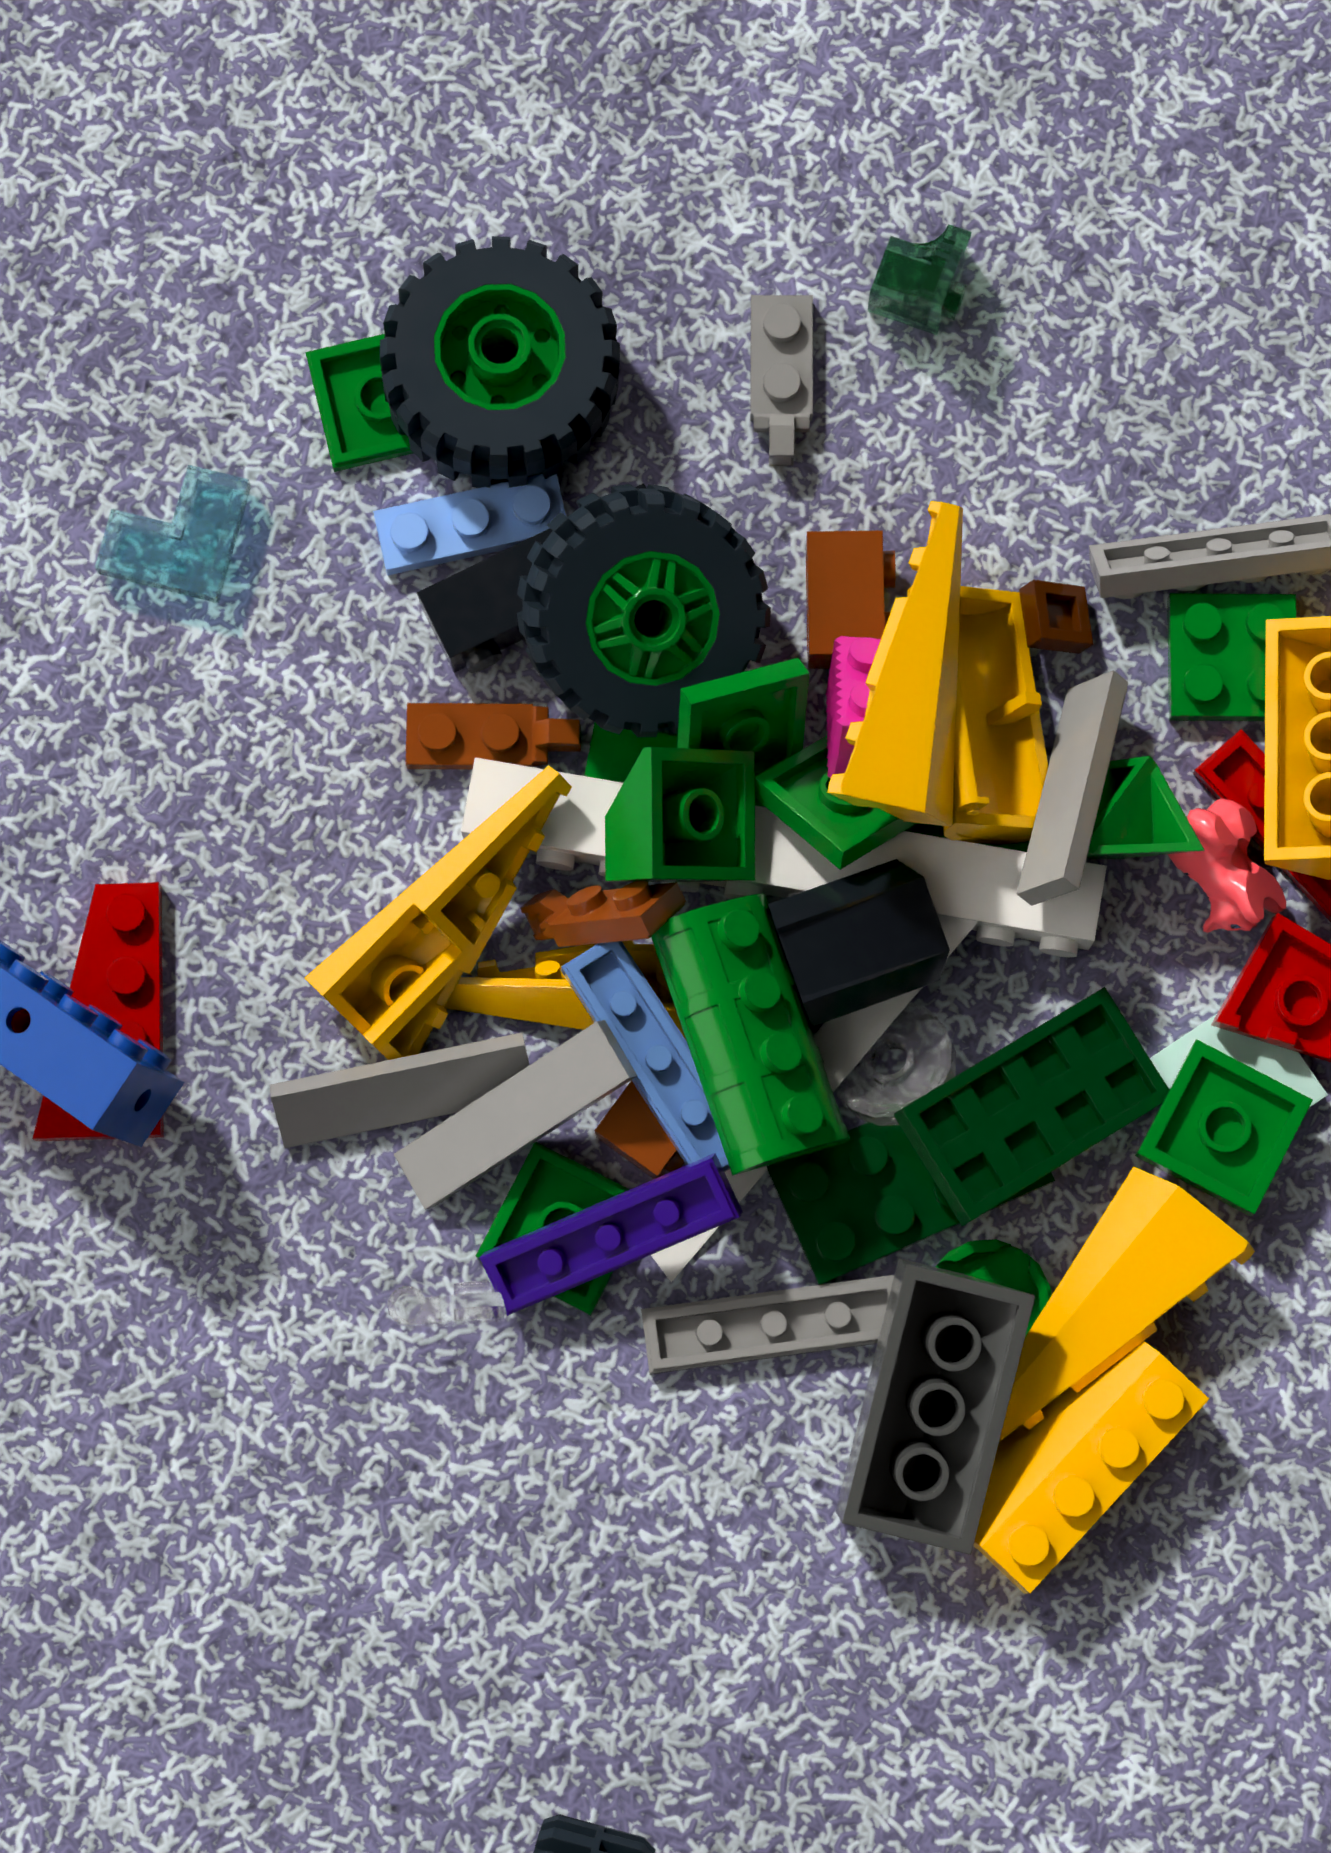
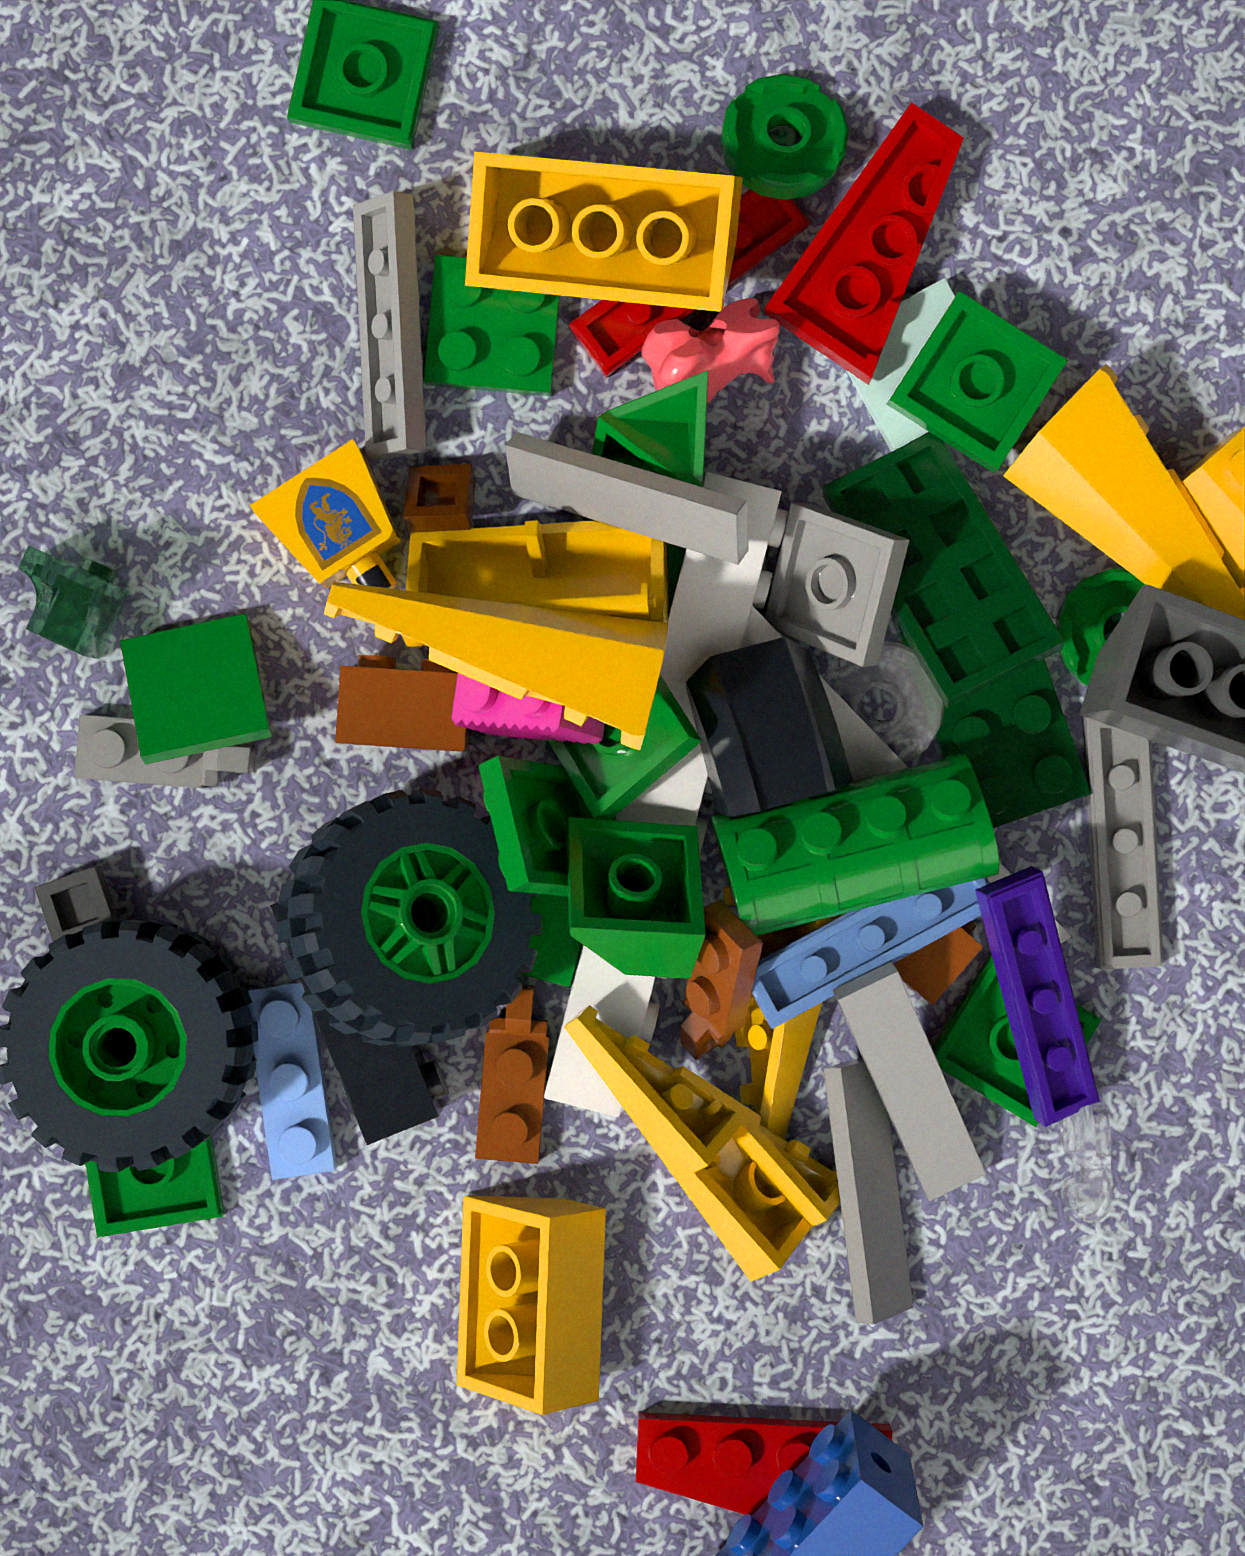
camera: 85 degrees left, 10 degrees up
(183, 555) = (298, 1366): clear light blue plate -> none
(271, 768) = (531, 1301): none -> yellow slope
(633, 305) = (76, 902): none -> dark grey plate
(847, 400) = (195, 689): none -> green tile
(1007, 999) = (835, 583): none -> light grey plate
(1025, 518) = (334, 520): none -> torso

